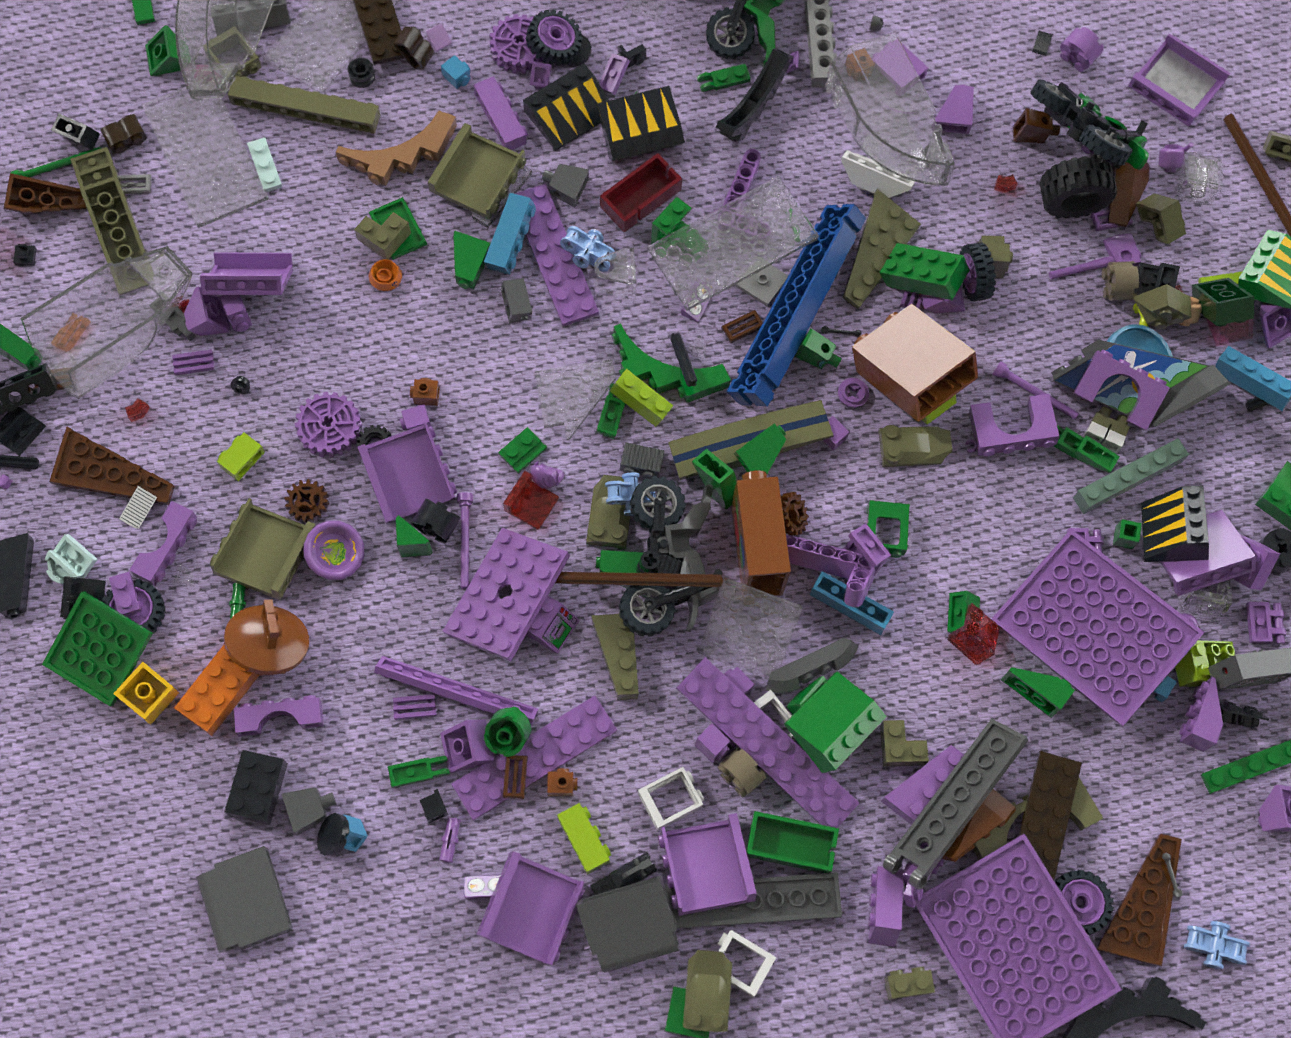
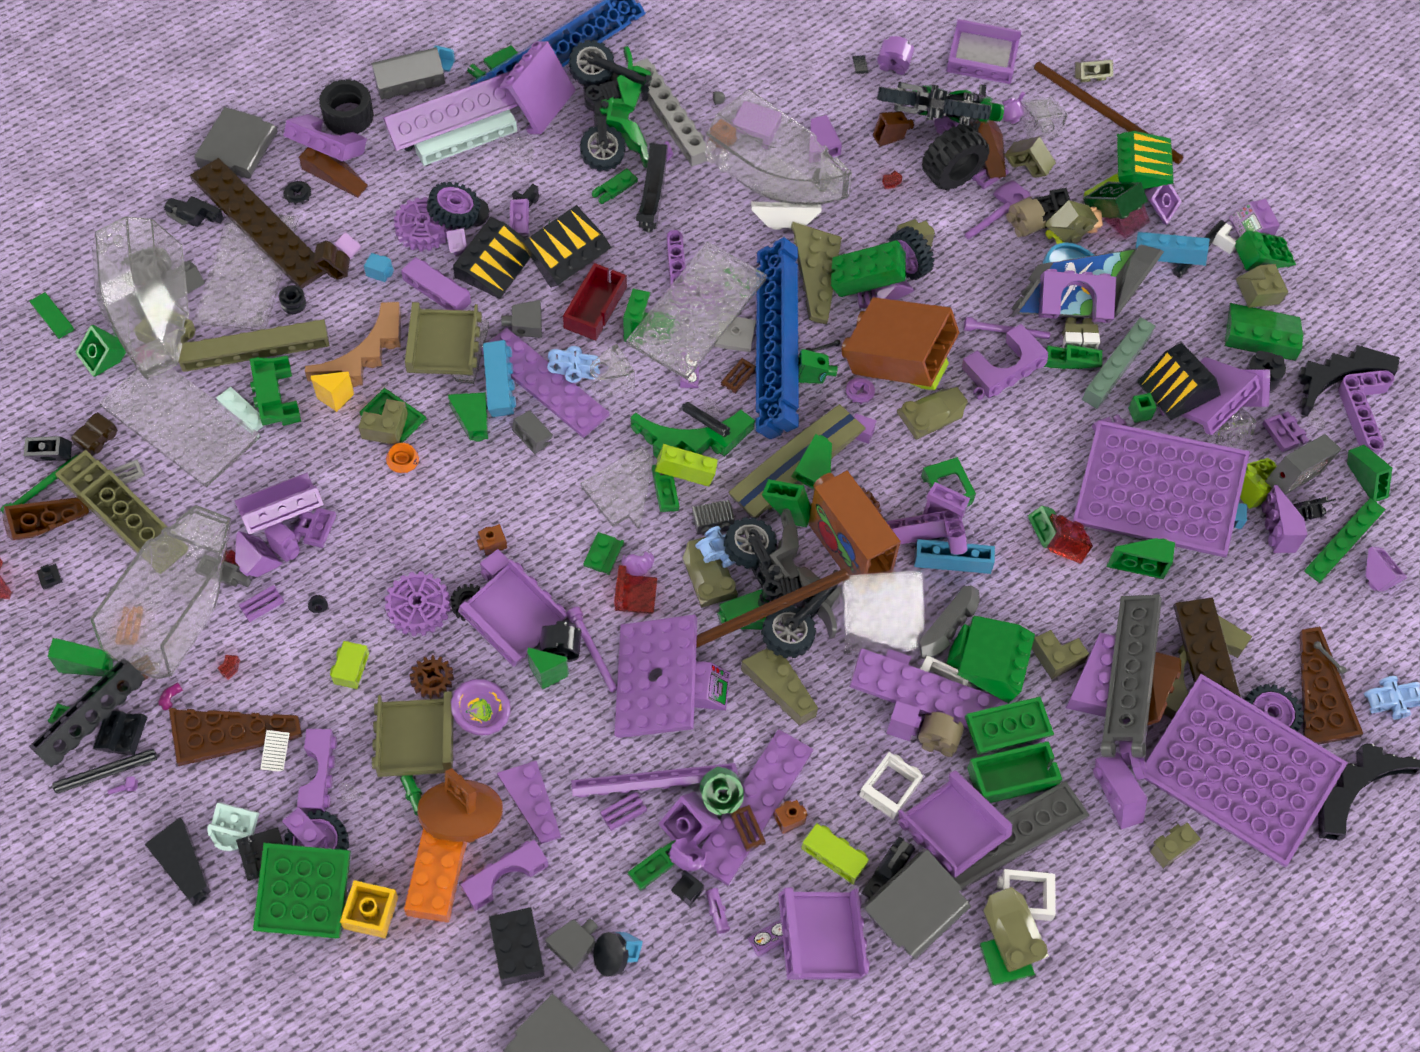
camera: 25 degrees left, 10 degrees down
(67, 417) = (167, 694): none -> magenta arm
(276, 312) = (318, 529): none -> medium lavender plate
(295, 155) = (268, 397): none -> green bracket
(339, 656) = (530, 795): none -> medium lavender wing
(353, 180) = (333, 389): none -> yellow slope
(446, 777) = (687, 855): none -> medium lavender hair
(810, 795) = (1009, 725): none -> green plate

